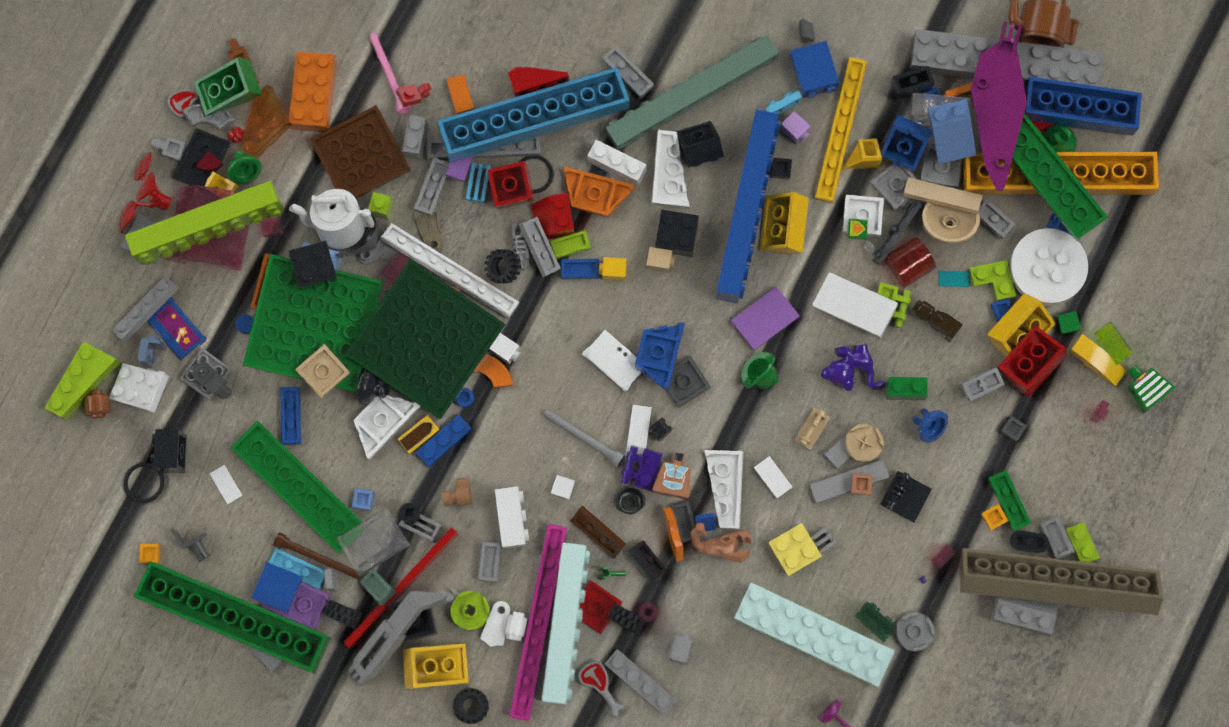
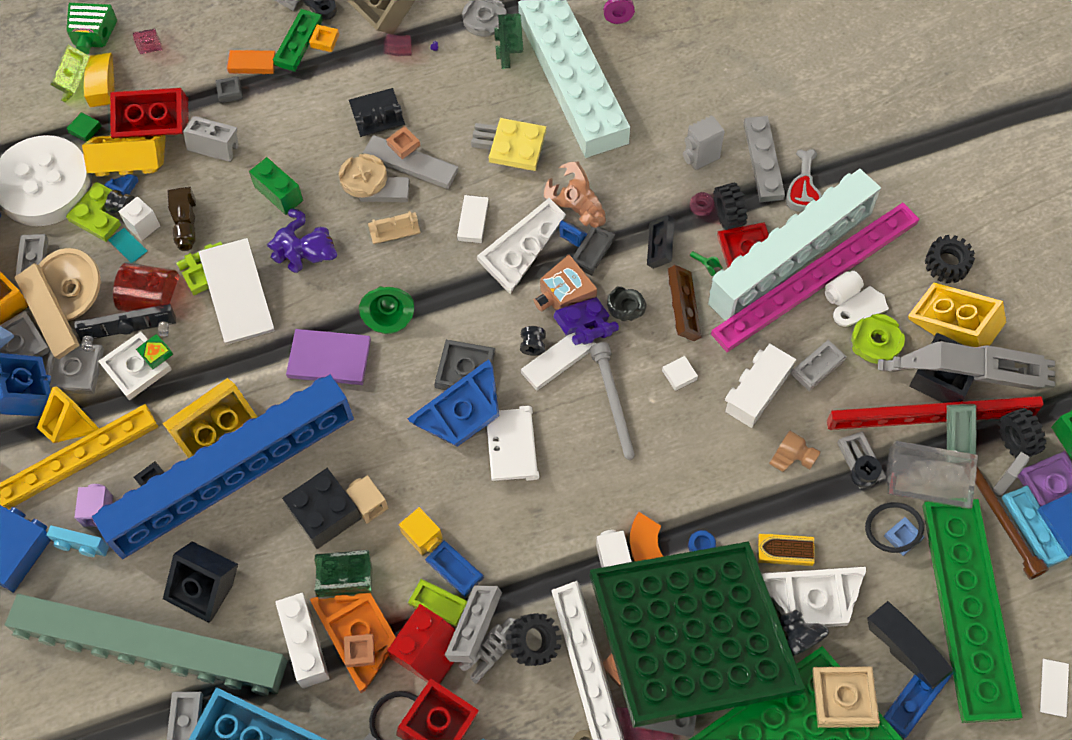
camera: 140 degrees left, 15 degrees down
(313, 435) = (909, 645): none -> black slope
(365, 481) = (894, 549): none -> black tyre
(443, 440) = (763, 520): blue plate -> none
(581, 181) = (359, 650): none -> nougat plate
(630, 212) = (343, 573): none -> clear green bracket
(668, 176) = (271, 574): white wing -> none
(673, 534) = (614, 243): orange tile -> none
(931, 424) = (290, 141): blue hair -> none
(960, 295) = (139, 218): none -> white brick
(984, 295) = (116, 201): none -> black wheel
(1021, 460) = (251, 62): none -> orange tile

